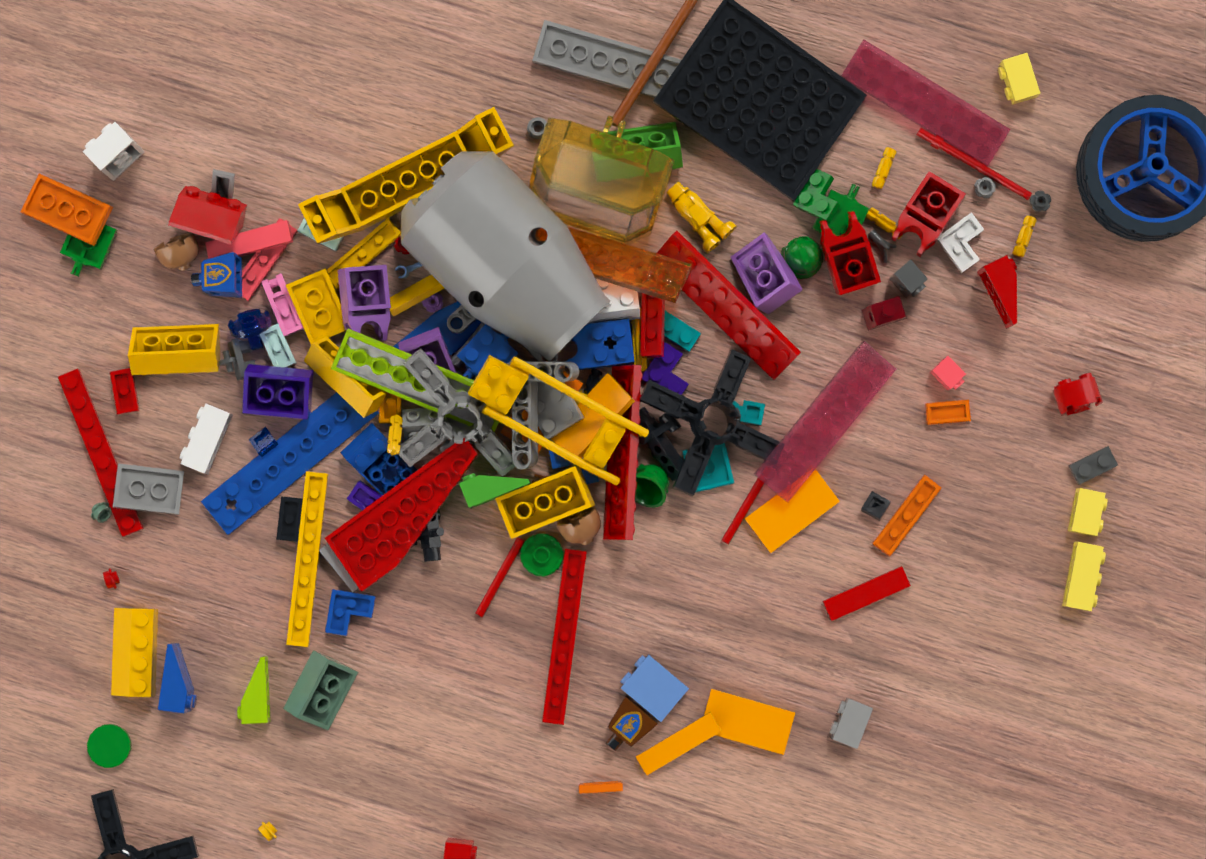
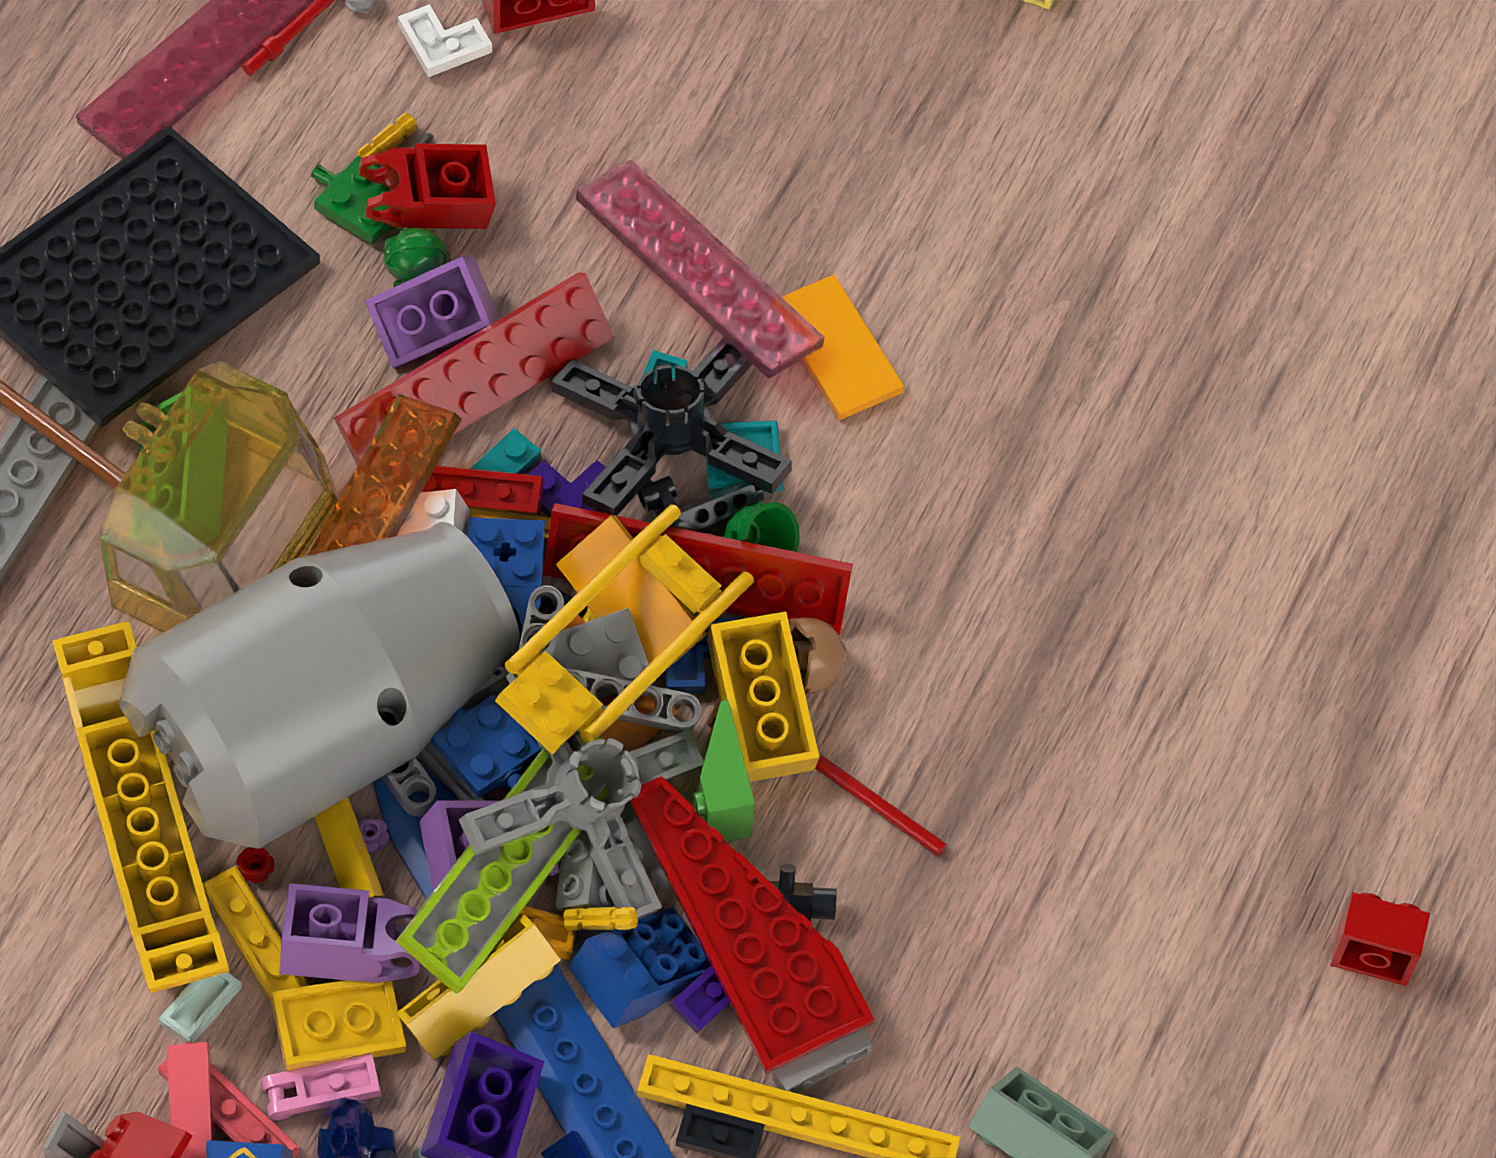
camera: 85 degrees left, 25 degrees down
(277, 347) = (402, 1104): light aqua plate -> none
(345, 604) = (893, 1067): blue plate -> none
(410, 268) = (300, 863): light blue hand -> none
(532, 123) = (98, 610): light grey plate -> none
(541, 554) = (852, 733): green tile -> none
(564, 636) = (1000, 716): red plate -> none
(596, 787) = (1268, 700): orange tile -> none
(629, 724) = (1164, 639): torso -> none
(653, 687) = (1106, 590): medium blue panel -> none
(678, 743) = (1207, 570): light orange tile -> none
(699, 215) = (314, 395): yellow piece -> none
(742, 511) = (821, 414): red bar -> none
(750, 721) = (1180, 468): light orange tile -> none
(812, 197) = (328, 228): green plate -> none
(850, 723) = (1202, 314): light grey brick -> none
(866, 593) = (991, 265): red tile -> none
(875, 506) = (850, 226): black tile -> none
(883, 168) = (295, 127): yellow axle -> none
(884, 313) = (536, 146): dark red torso -> none
(906, 515) = (873, 189): orange tile -> none
(909, 279) = (488, 109): dark grey brick -> none
(923, 217) = (384, 65): red brick -> none
(947, 412) = (714, 107): orange tile -> none
(948, 373) = (652, 91): coral brick -> none

